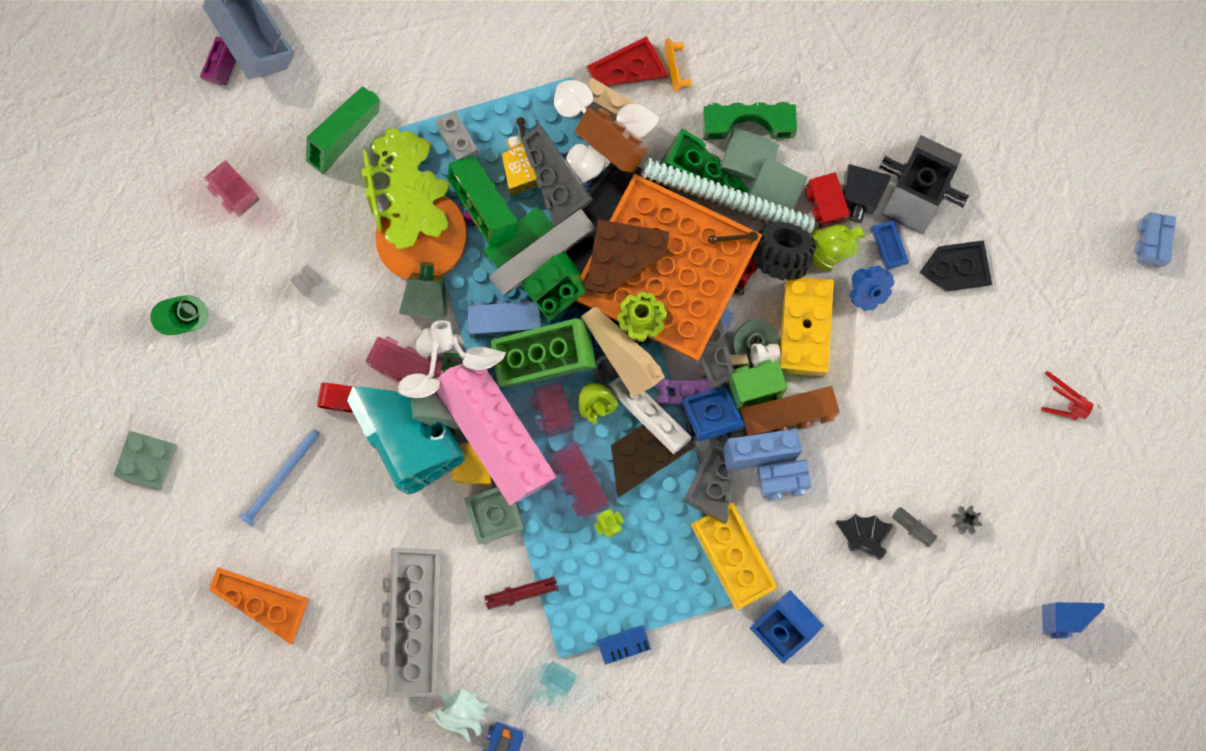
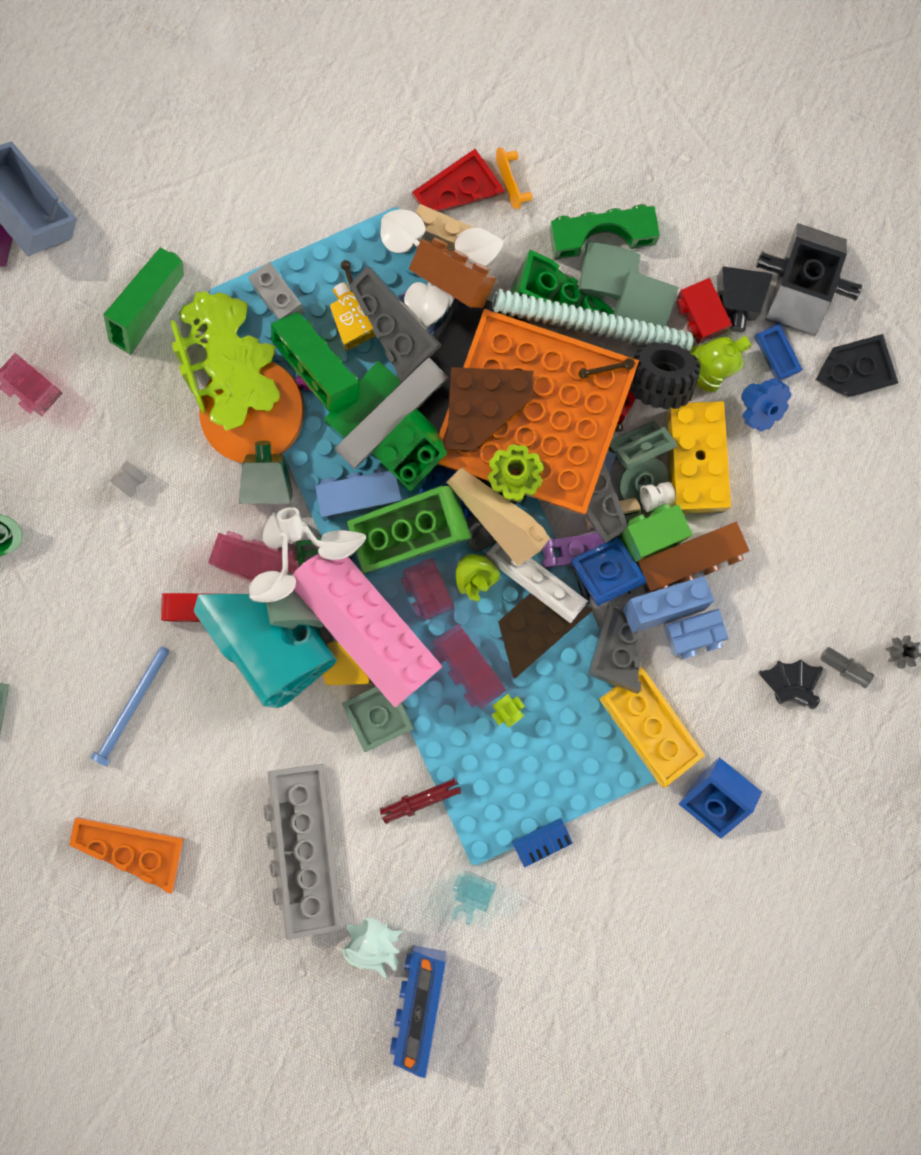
camera: 10 degrees left, 5 degrees up
(756, 307) = (641, 444): none -> sand green slope

